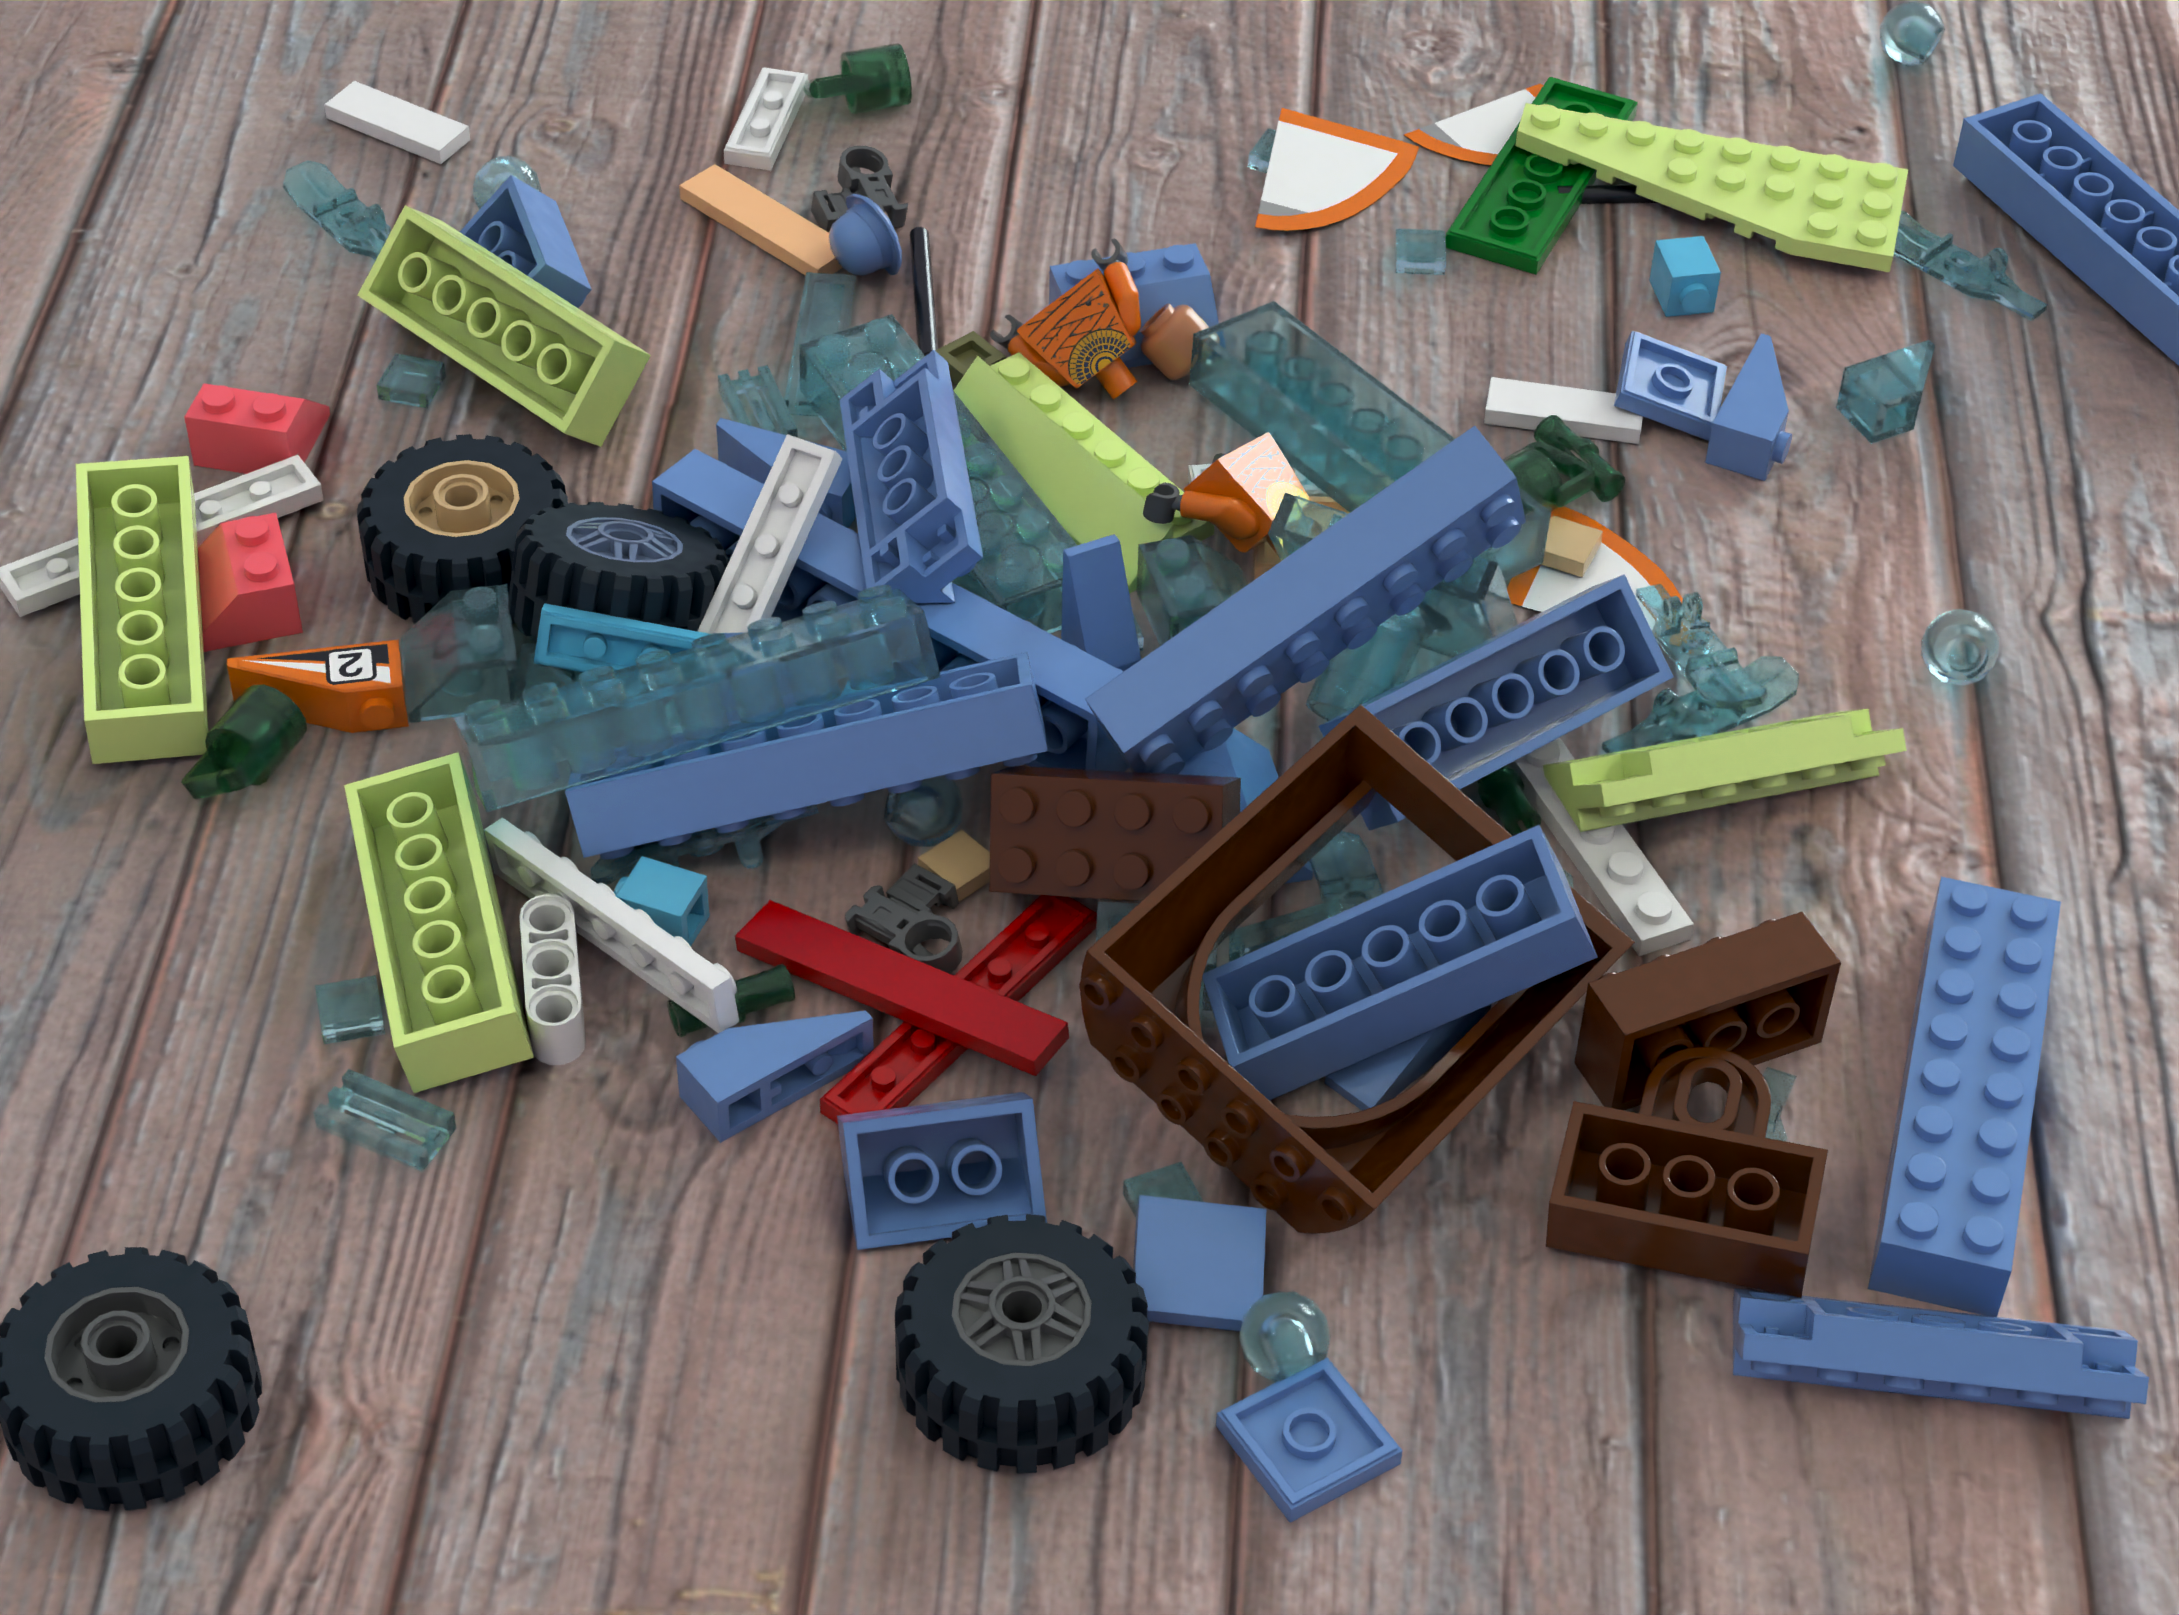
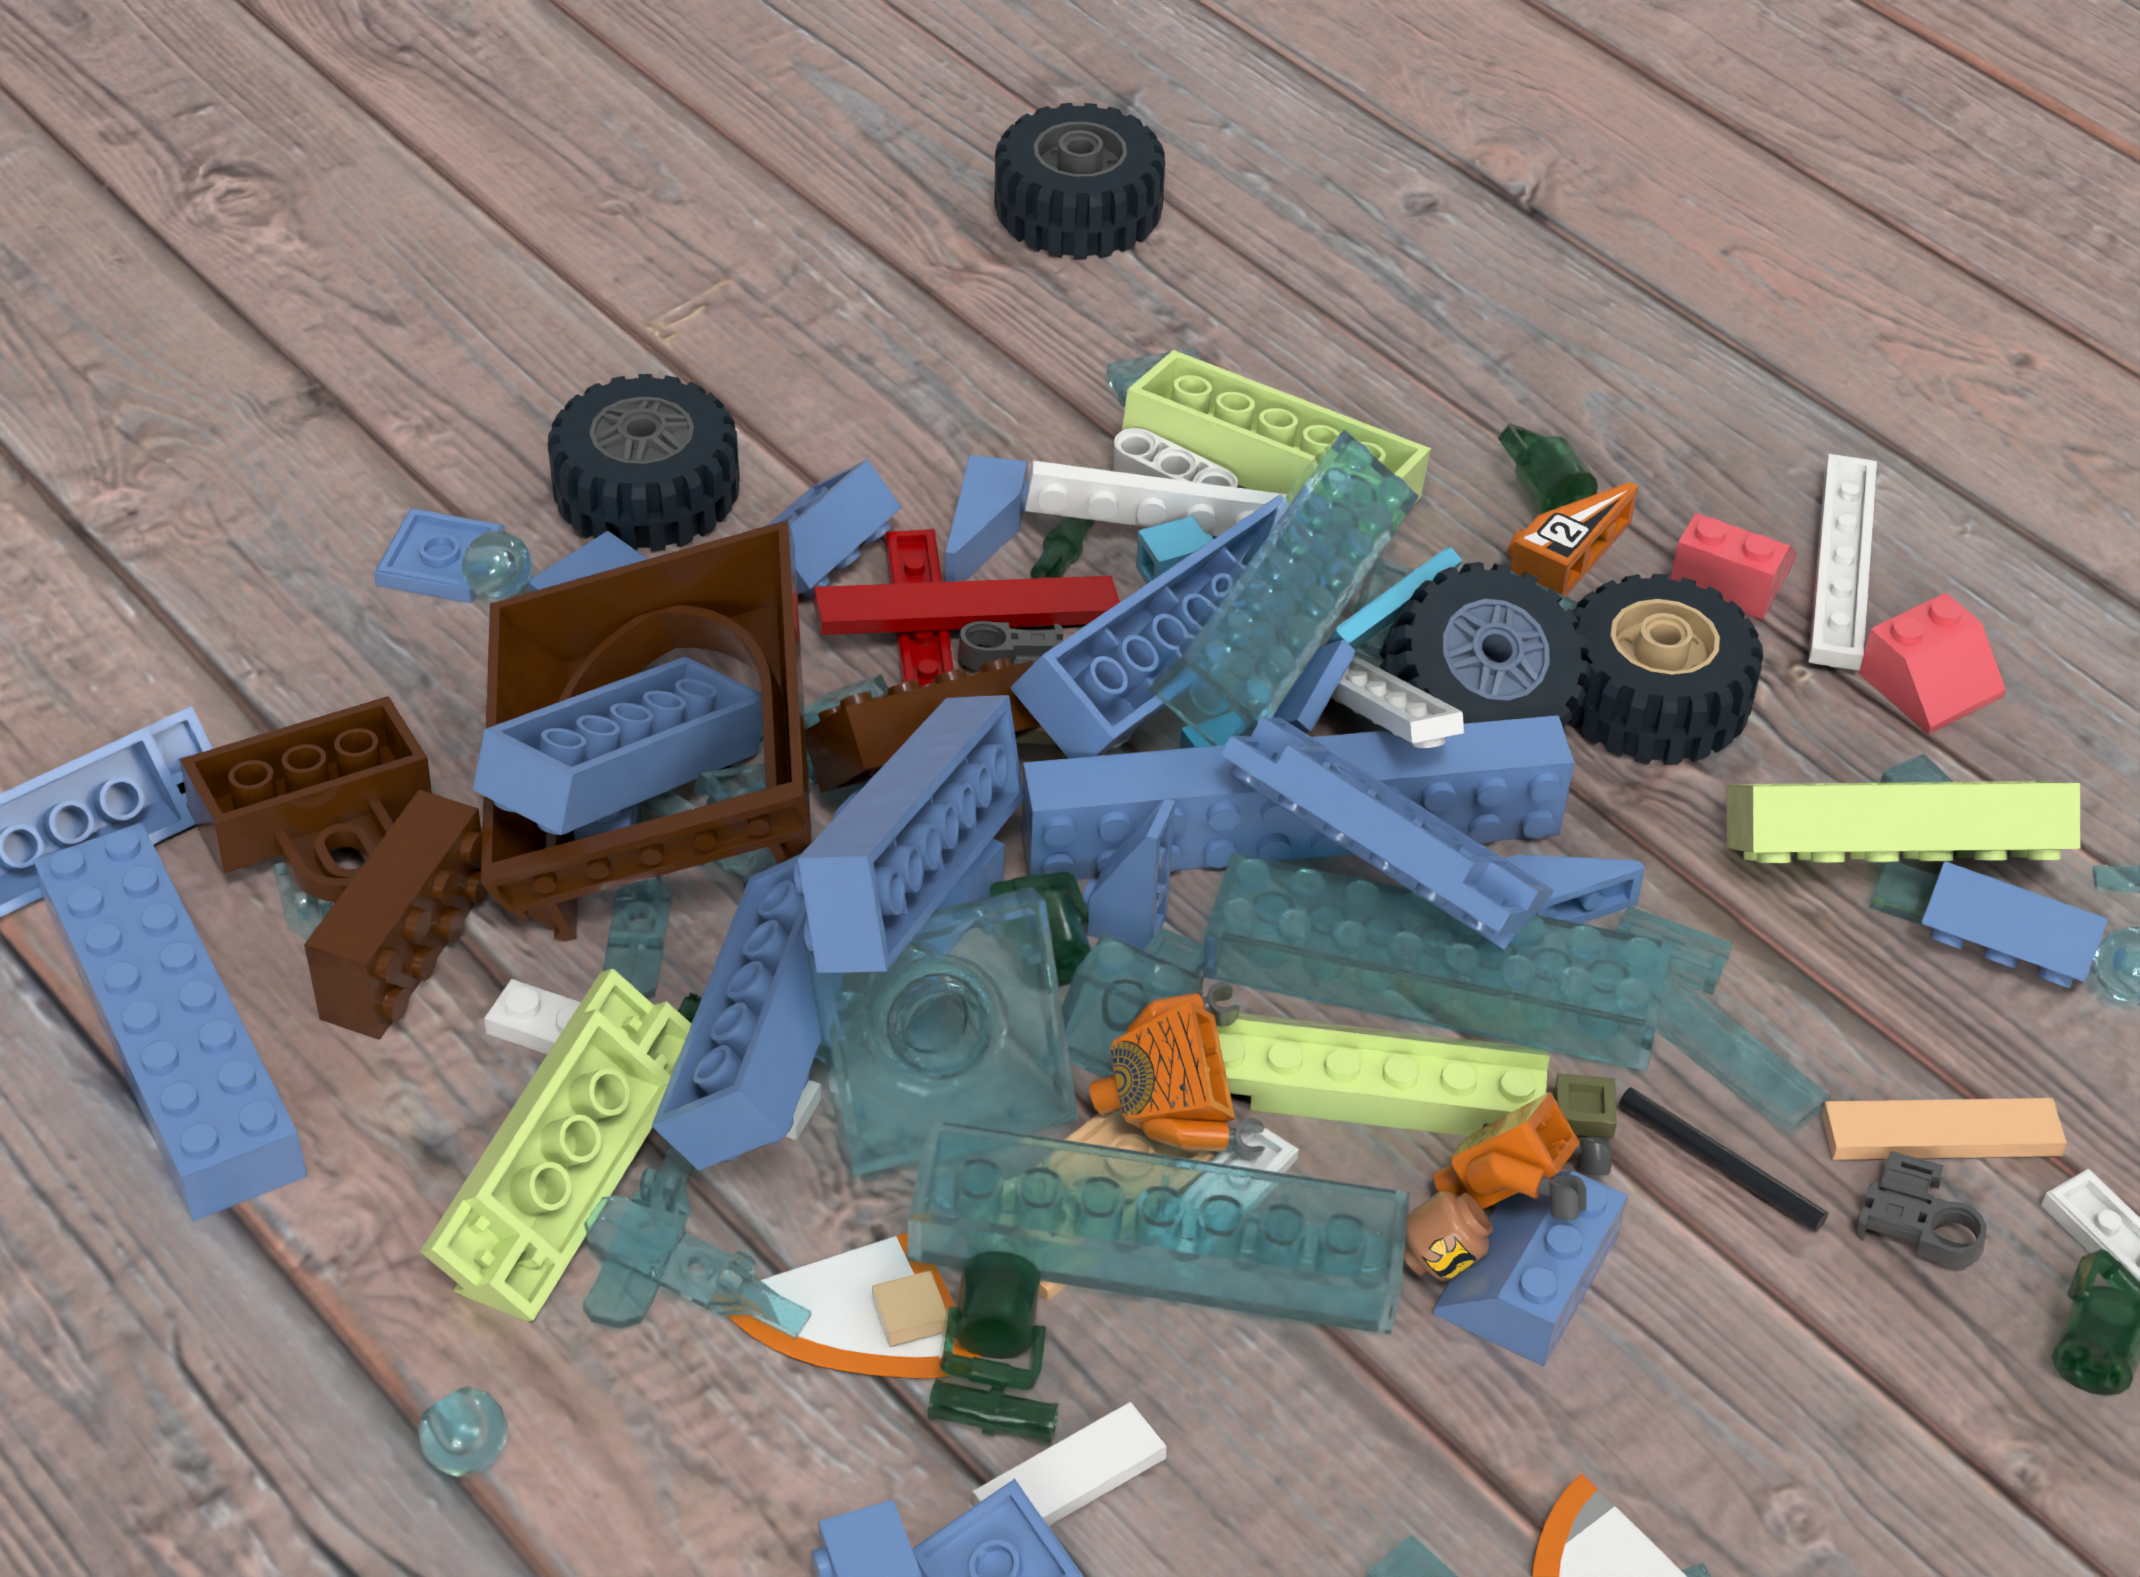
camera: 135 degrees right, 0 degrees up
(140, 610) = (1738, 470): yellowish green brick -> none
(865, 238) = (1815, 1133): medium blue hat -> none

